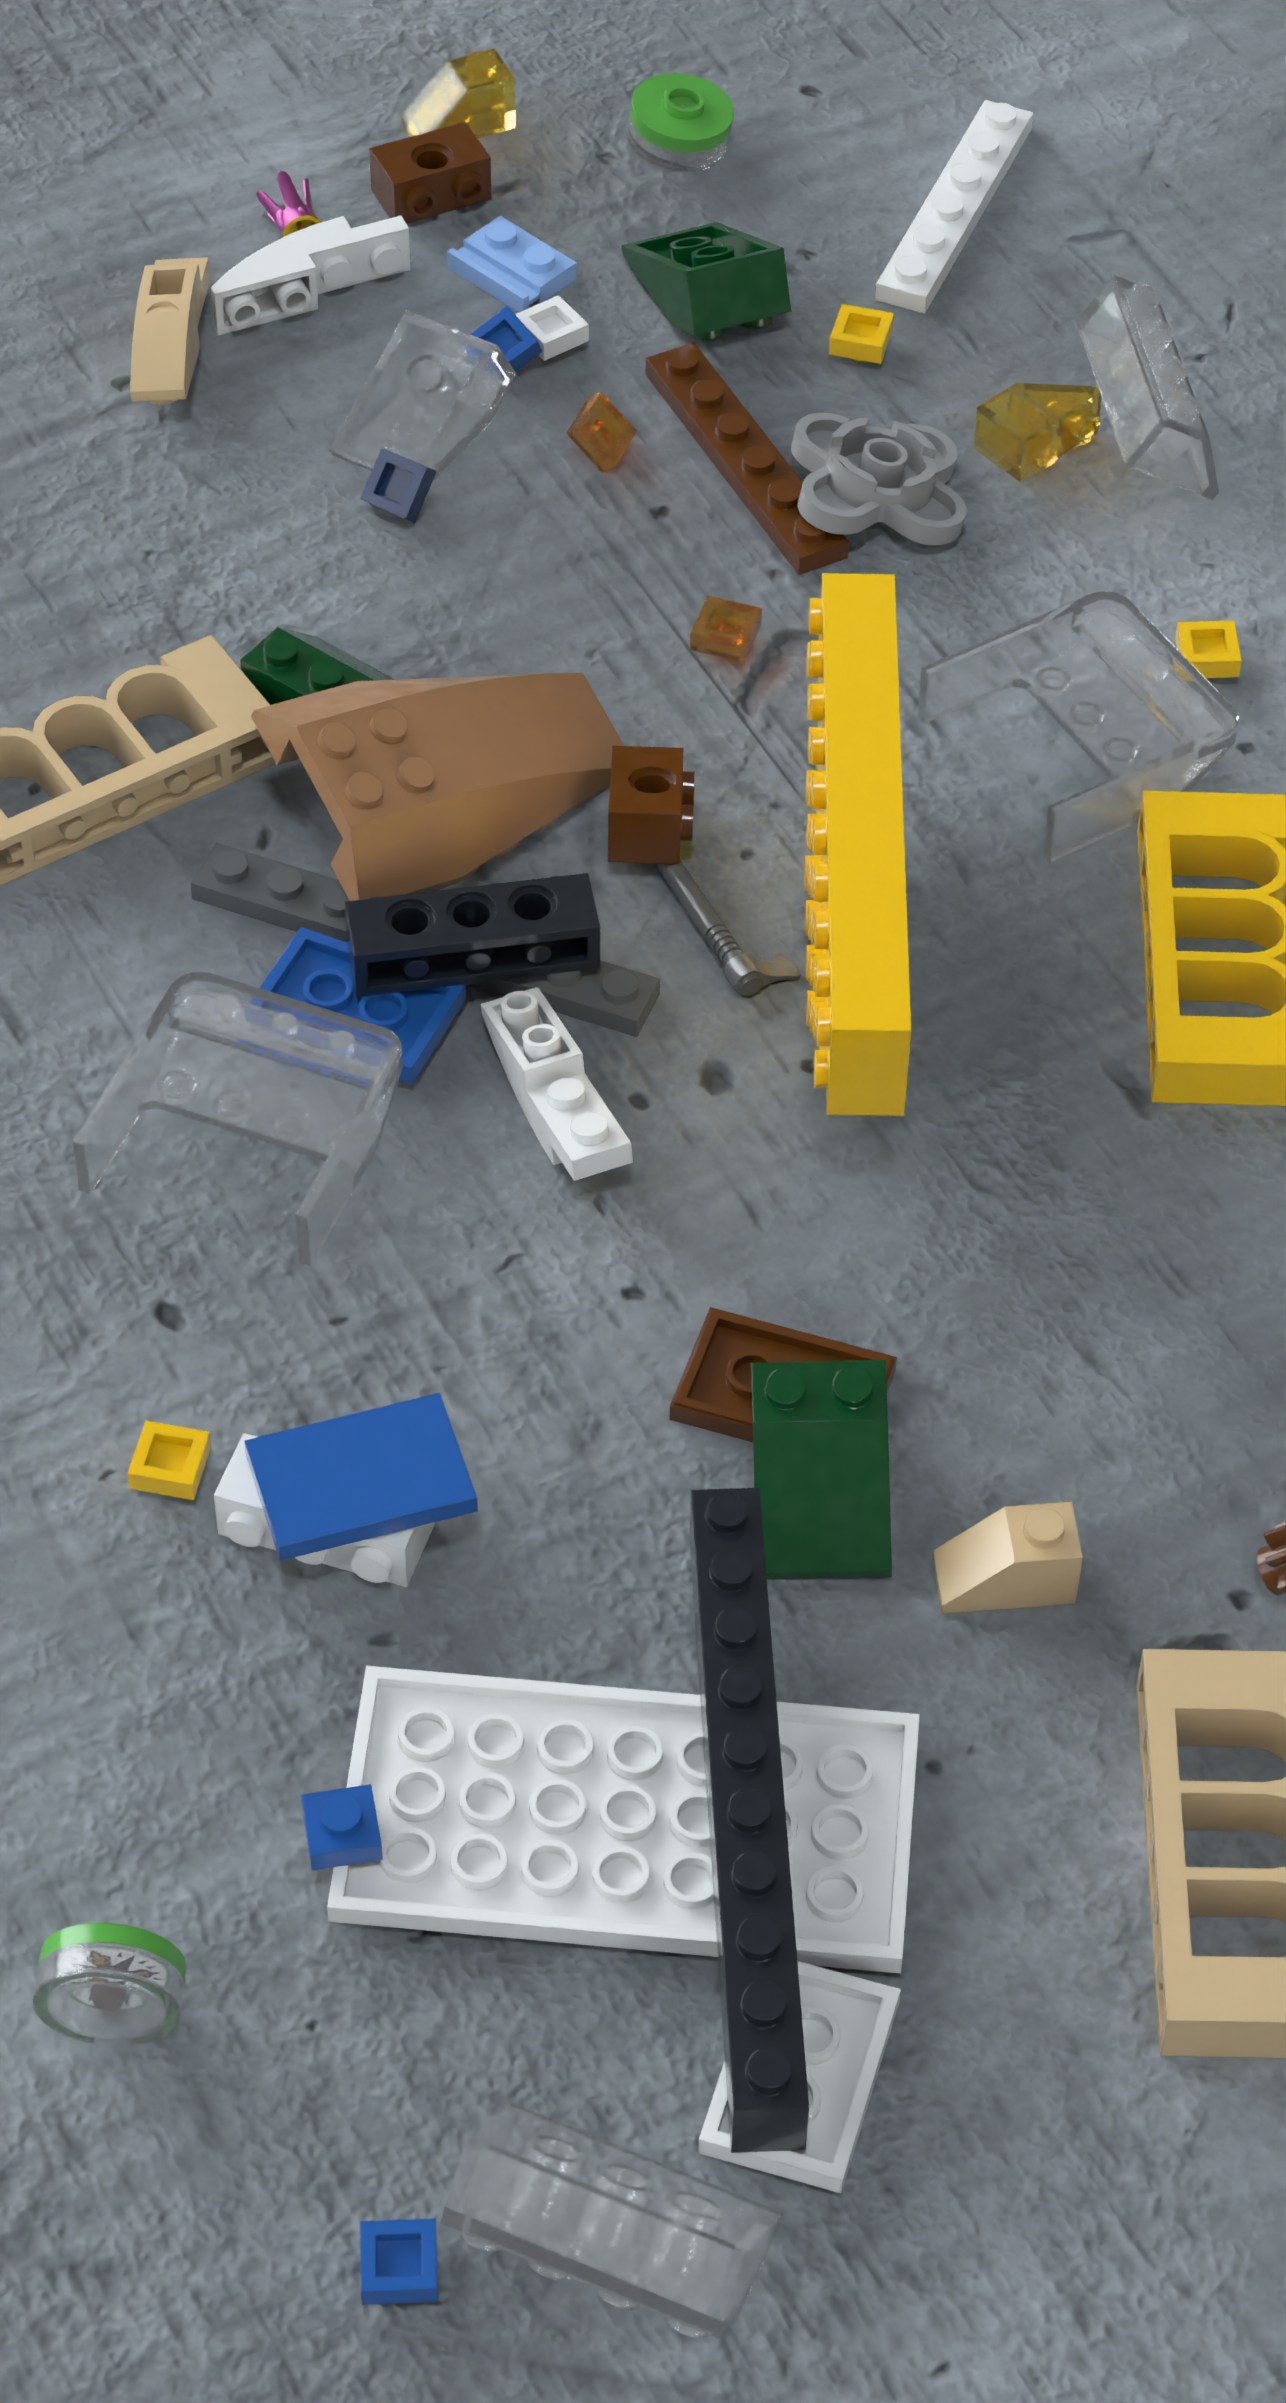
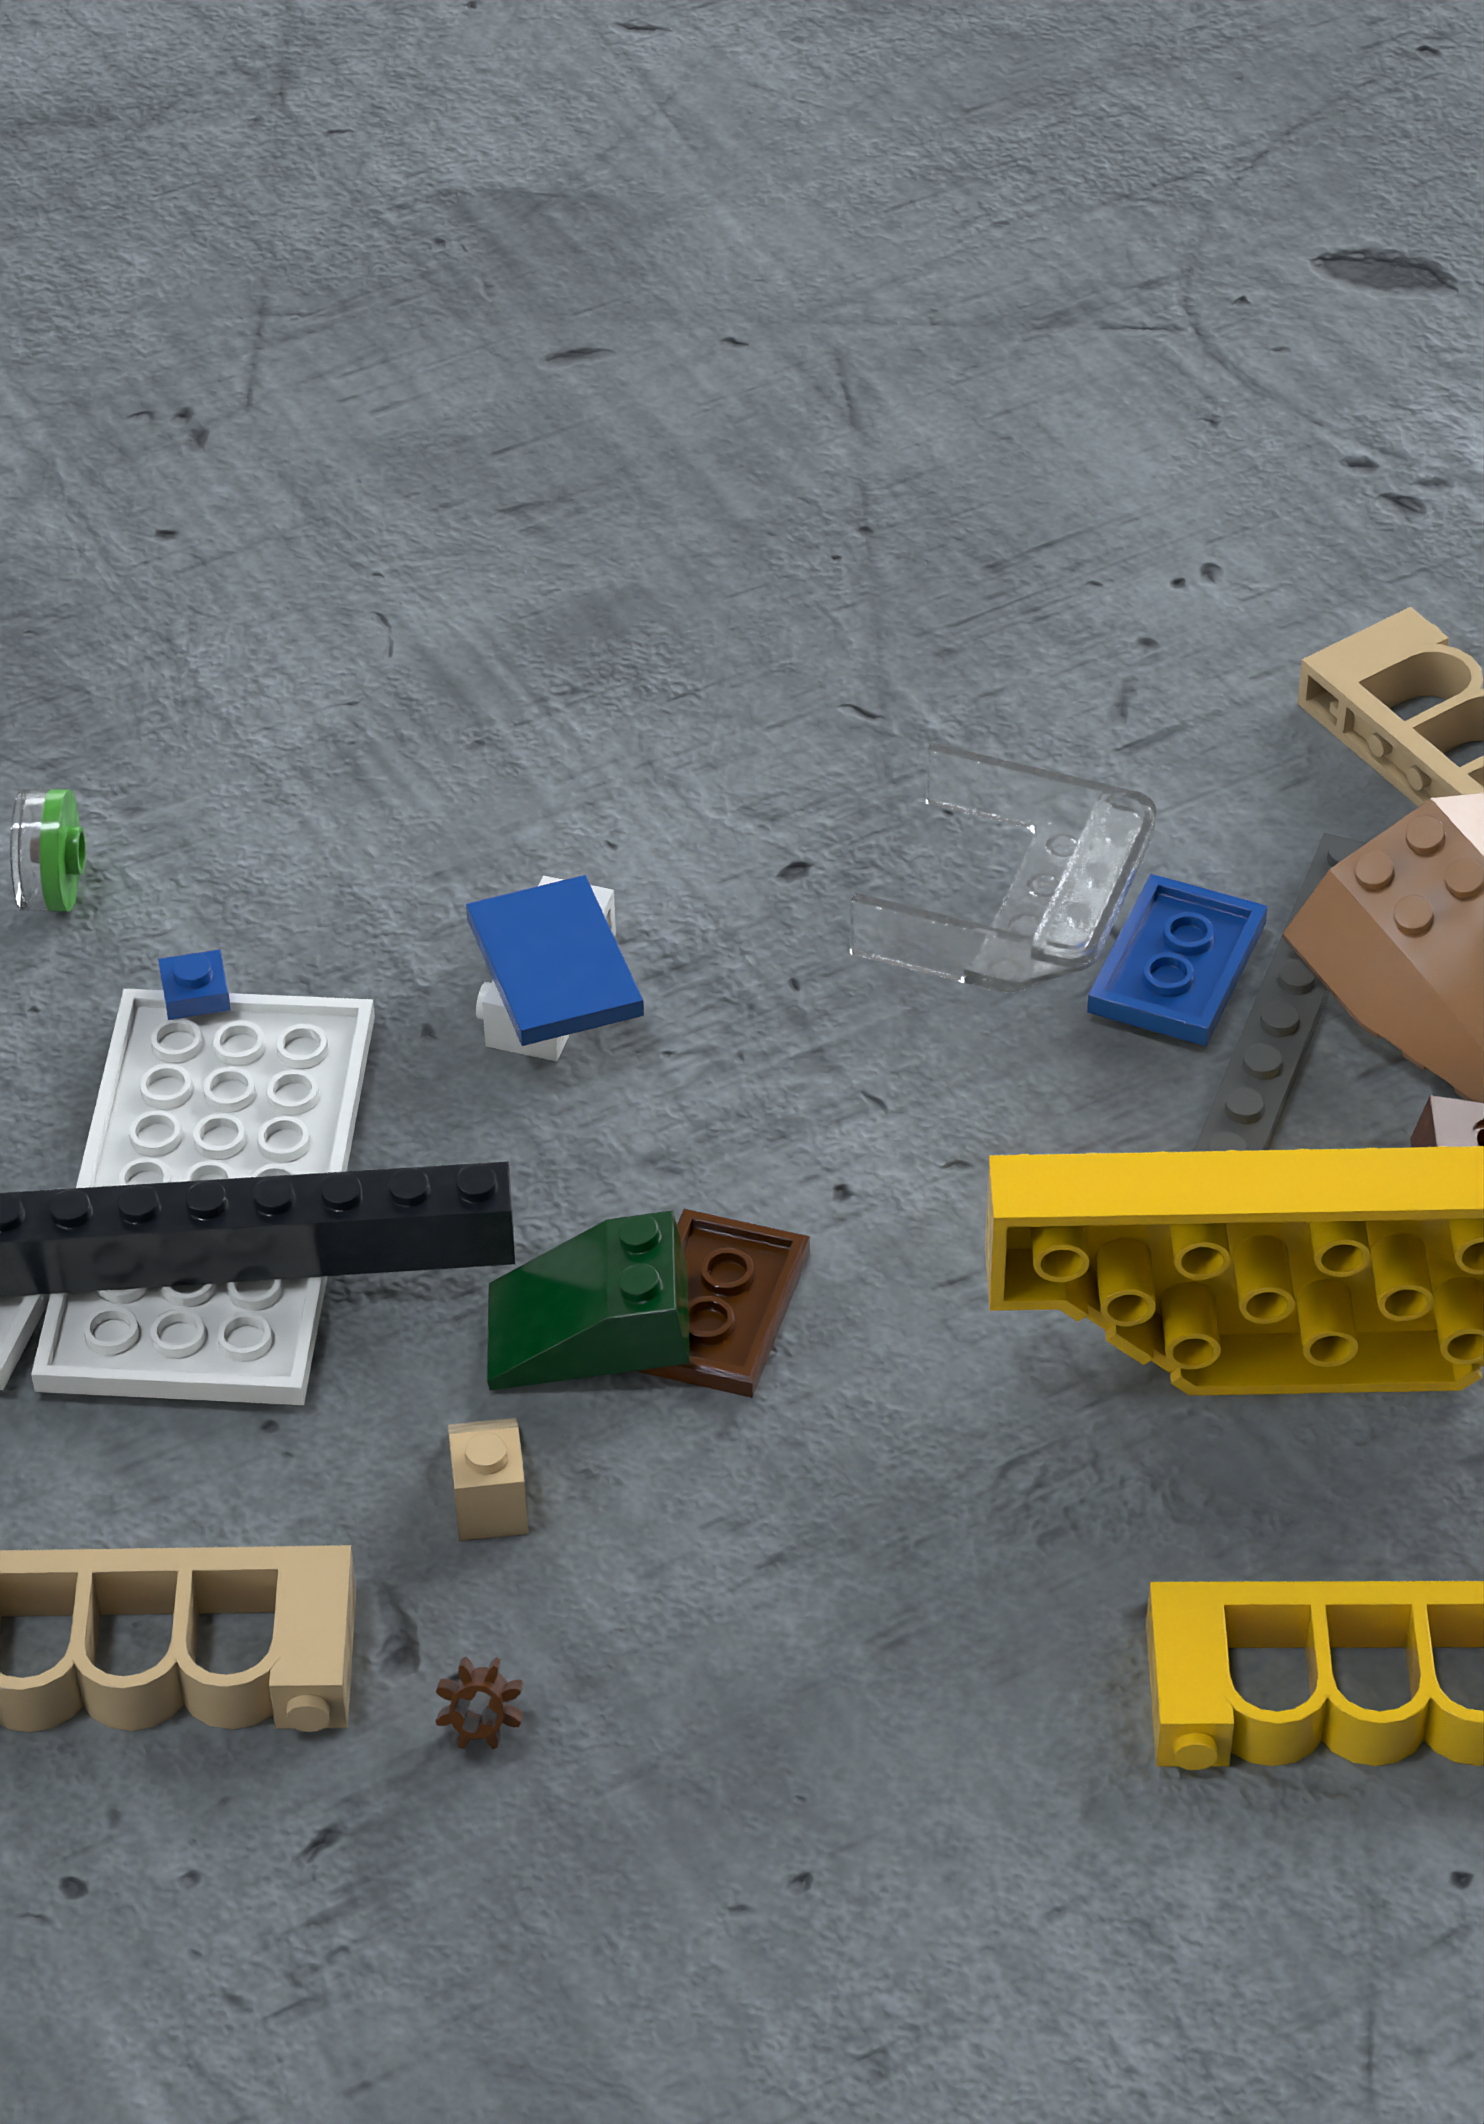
camera: 90 degrees right, 5 degrees down
(169, 1460) = (612, 865): yellow plate -> none
(472, 934) = (1253, 1012): black brick -> none
(552, 1085) = (1090, 1107): white slope -> none

